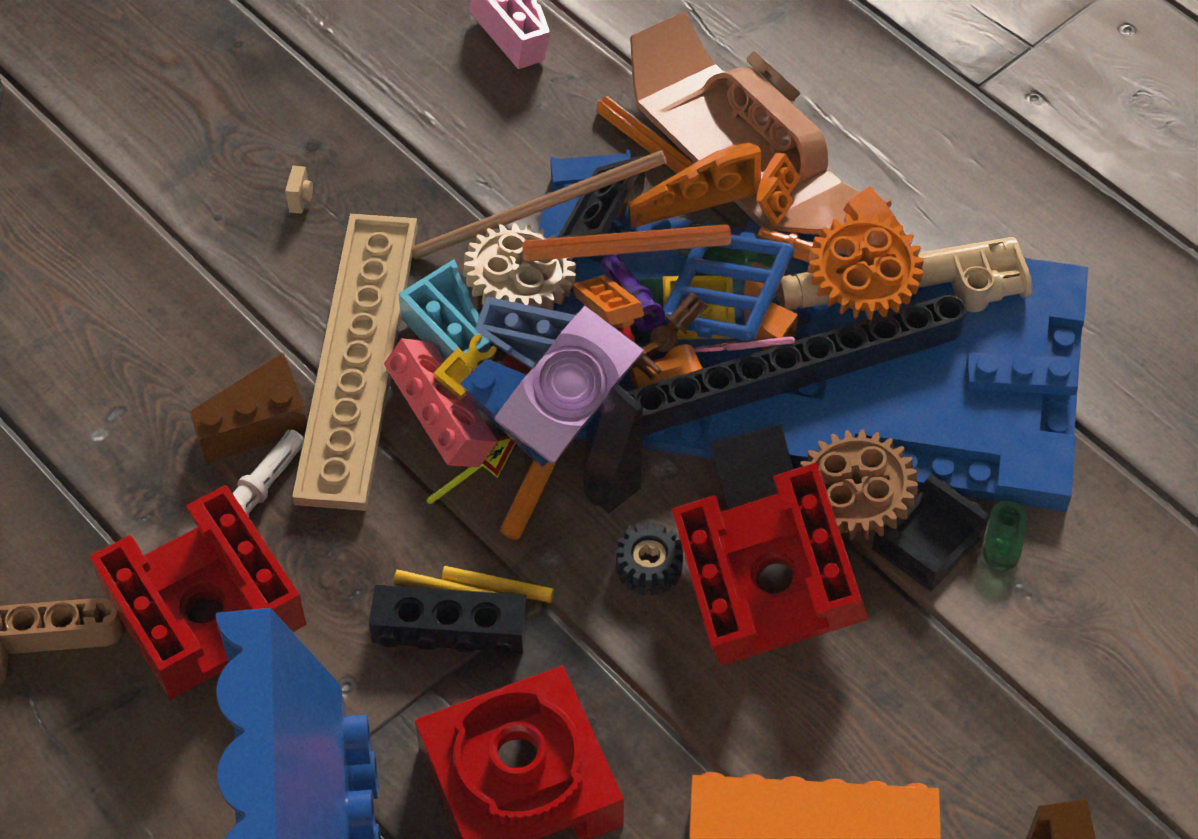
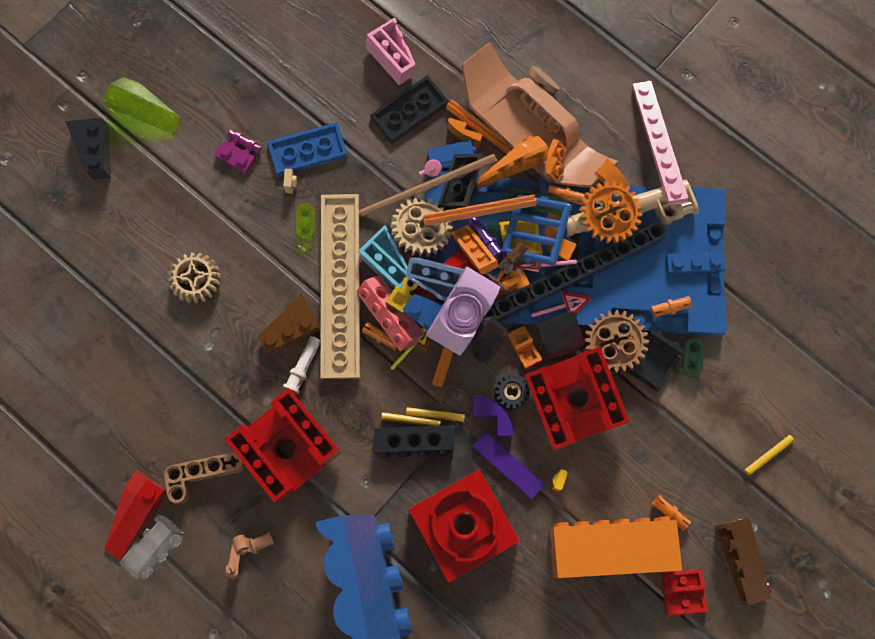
camera: 10 degrees left, 20 degrees up
(64, 61) = (140, 104): none -> clear neon green wedge
(84, 768) = (242, 546): none -> nougat pin
(97, 319) = (180, 277): none -> tan gear
(212, 149) = (234, 156): none -> magenta plate
(314, 256) = (305, 222): none -> clear neon green plate
(342, 148) = (307, 149): none -> blue tile
(416, 443) = (378, 334): none -> orange pin
(530, 107) = (409, 109): none -> black tile
(551, 182) = (432, 169): none -> bright pink piece
(600, 582) = (488, 409): none -> dark purple brick
(613, 139) = (458, 129): none -> orange slope
(625, 685) = (508, 465): none -> dark purple tile
(679, 480) = (524, 348): none -> orange slope
(720, 717) = (559, 480): none -> yellow tile
(777, 411) = (572, 302): none -> piece
(950, 812) = (672, 511): none -> orange pin
(967, 437) = (671, 307): none -> orange pin
(971, 184) = (660, 143): none -> bright pink plate
(1144, 721) = (769, 455): none -> yellow bar

